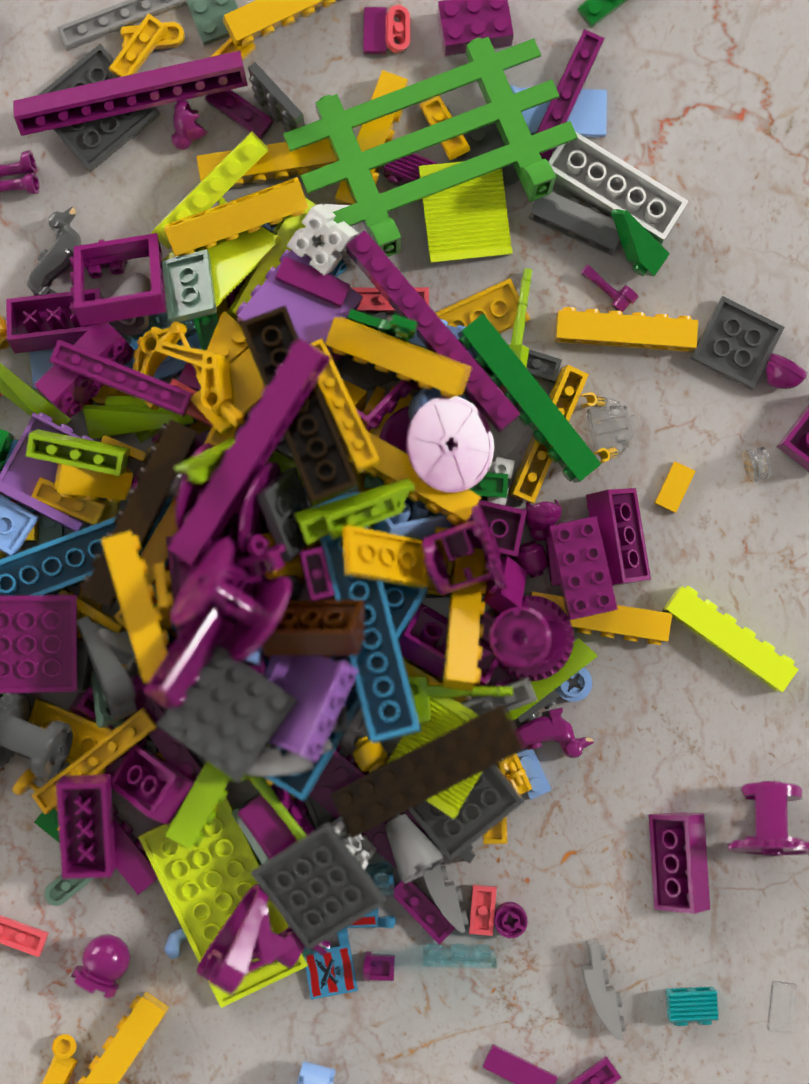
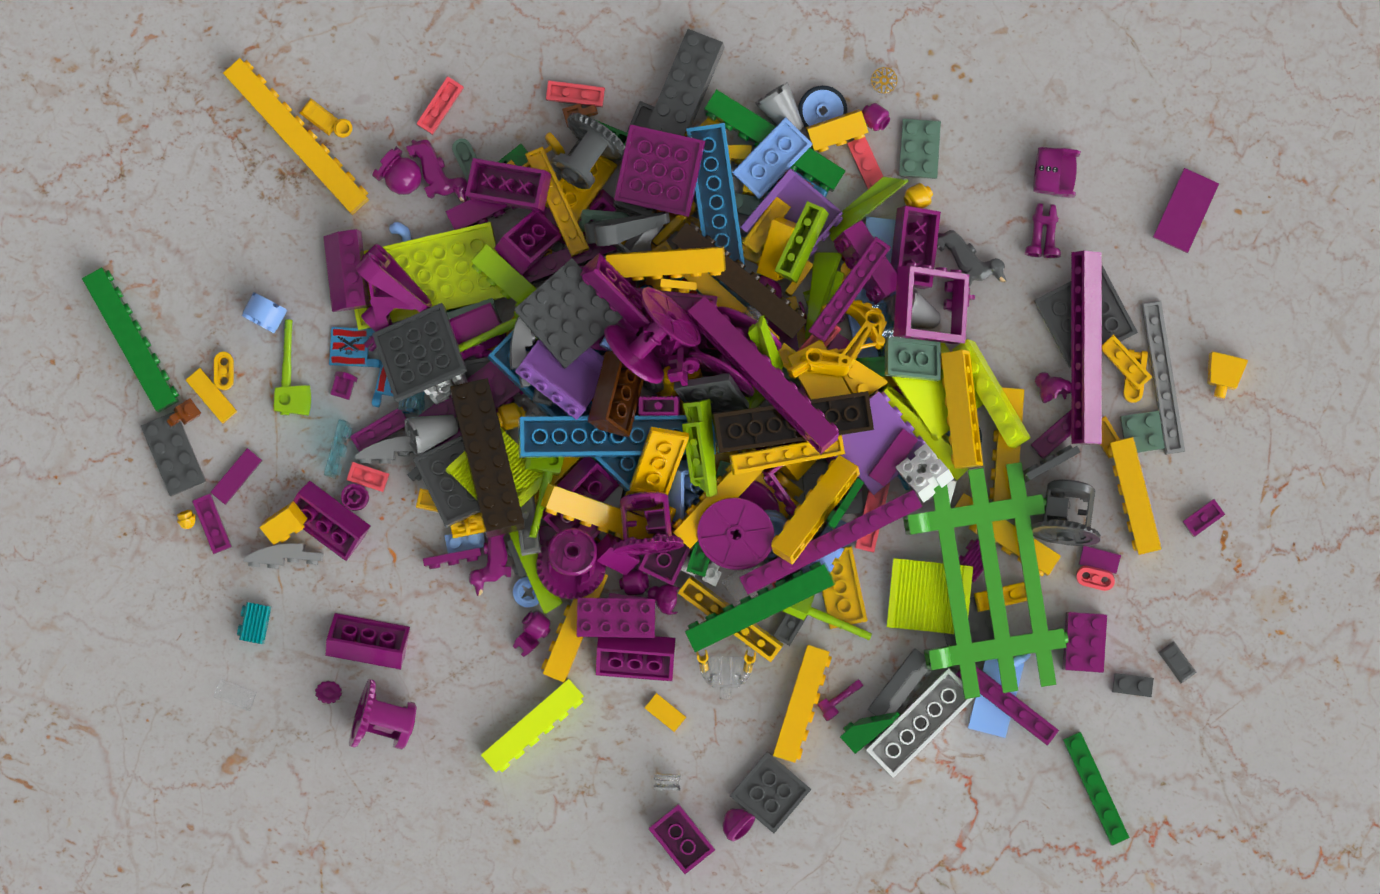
camera: 105 degrees right, 0 degrees up
(95, 920) = (433, 172): none -> magenta animal
(257, 995) = (346, 285): none -> magenta slope
(331, 80) = (1055, 522): none -> dark grey piece
(410, 1032) = (290, 398): none -> lime piece
(546, 946) = (330, 521): none -> magenta slope
(556, 783) = (452, 558): none -> magenta plate
(564, 1000) = (283, 523): none -> yellow brick
(610, 663) = (536, 625): none -> magenta head
(634, 669) = (526, 642): none -> magenta tile
(751, 894) = (328, 692): none -> magenta piece

